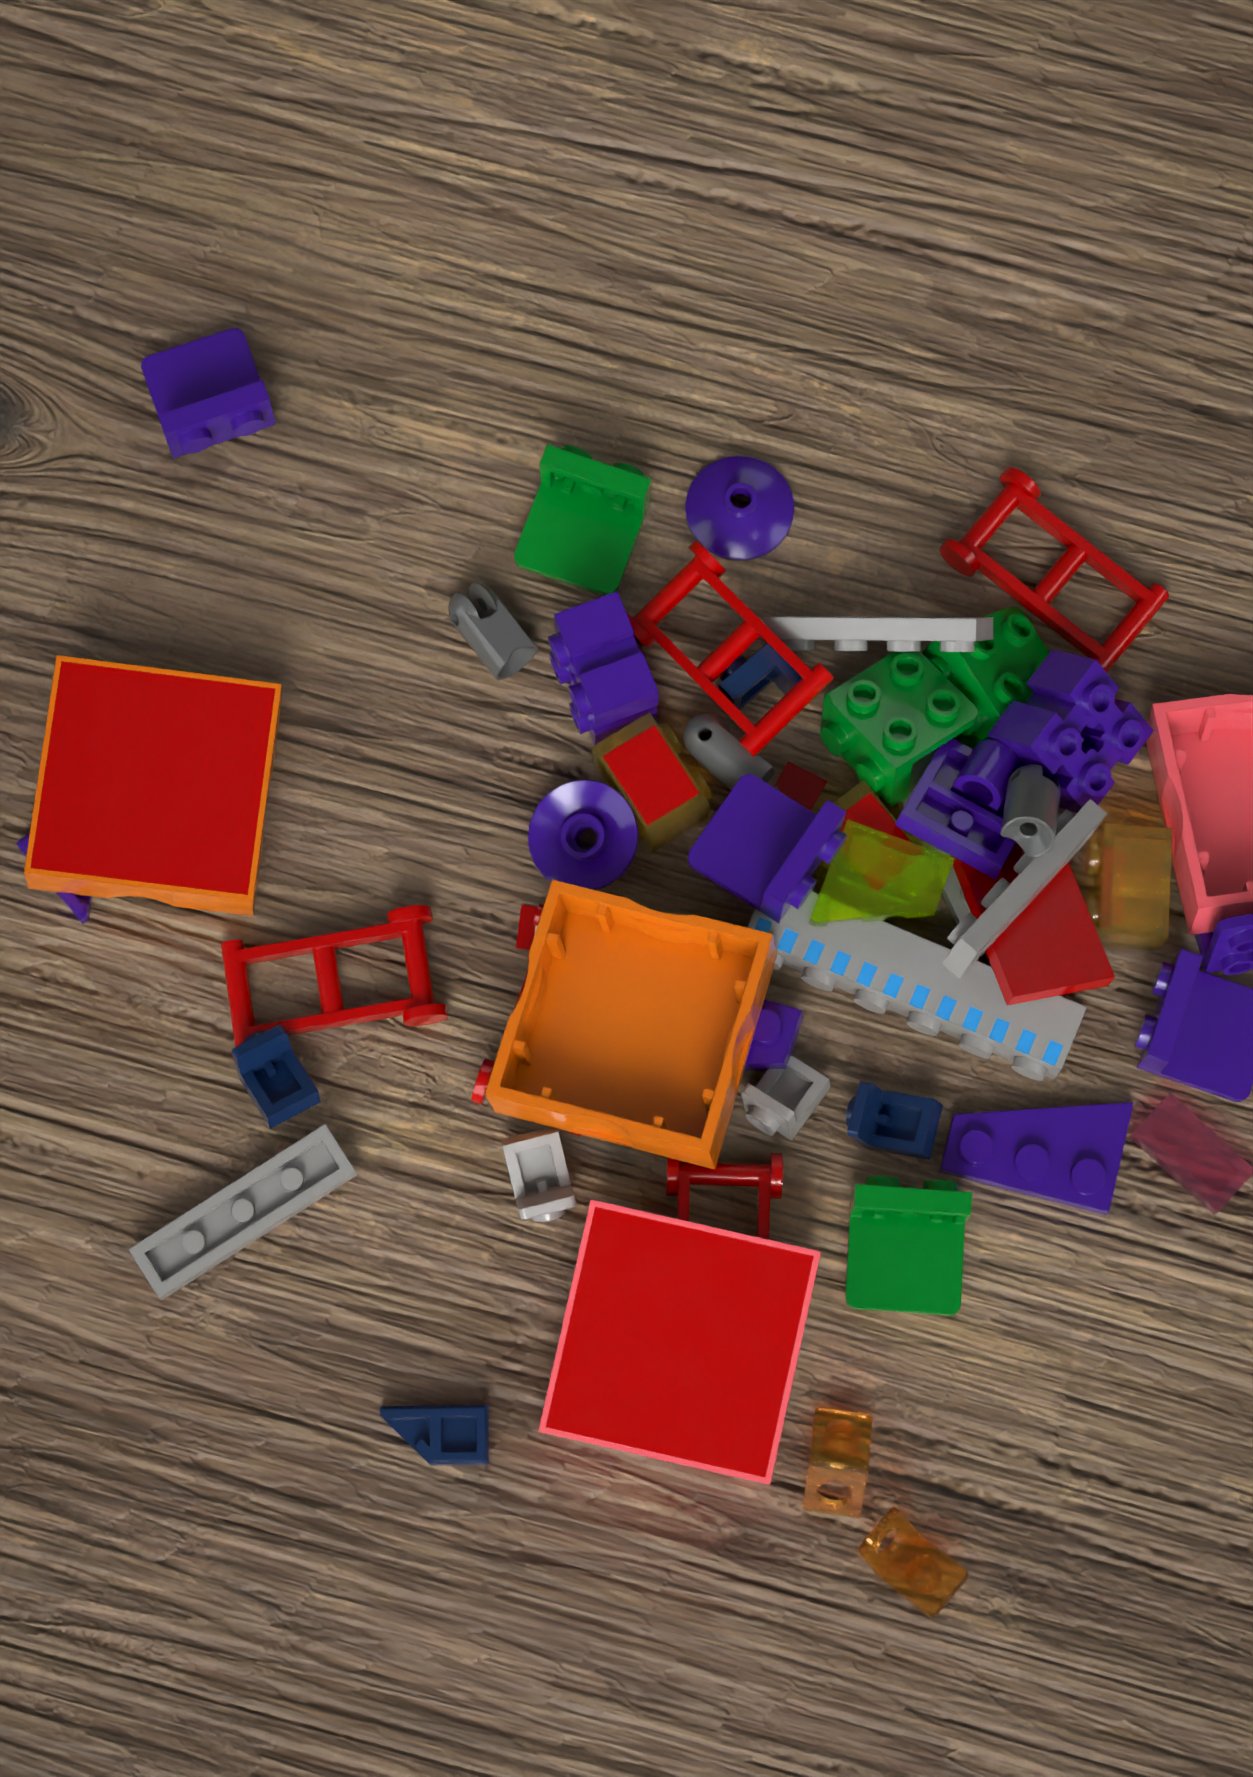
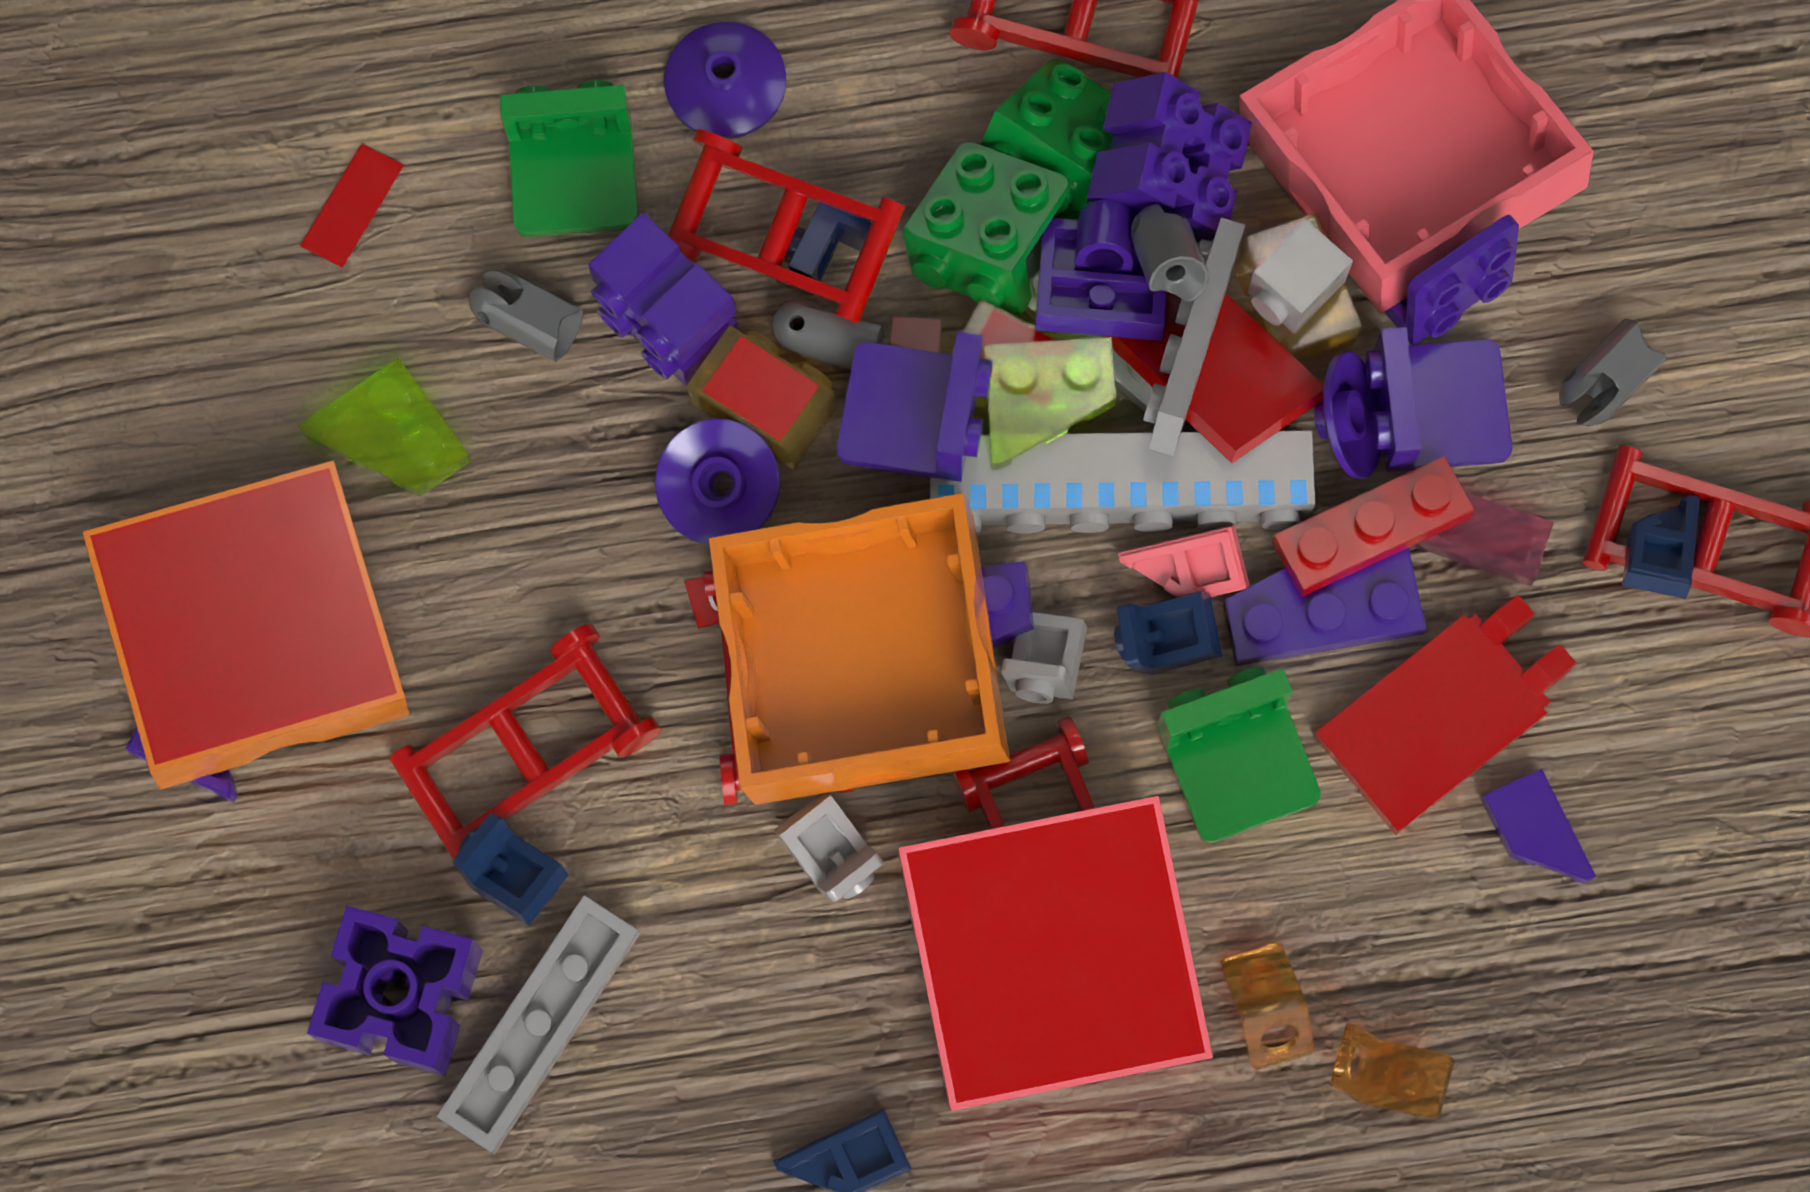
camera: 20 degrees left, 0 degrees up
(140, 1099) = (377, 956): none -> dark purple brick
(207, 392) = (116, 195): dark purple bracket -> none
(341, 678) = (390, 430): none -> clear neon green wing
(392, 481) = (351, 205): none -> red sticker
(900, 632) = (952, 132): light grey plate -> none
(941, 1072) = (1192, 563): none -> coral tile
(1090, 1288) = (1441, 715): none -> red tile
(1103, 1108) = (1372, 526): none -> red plate
(1122, 1007) = (1347, 415): none -> dark purple dish
(1126, 1416) = (1536, 827): none -> dark purple tile
(1131, 876) = (1298, 277): none -> light grey brick

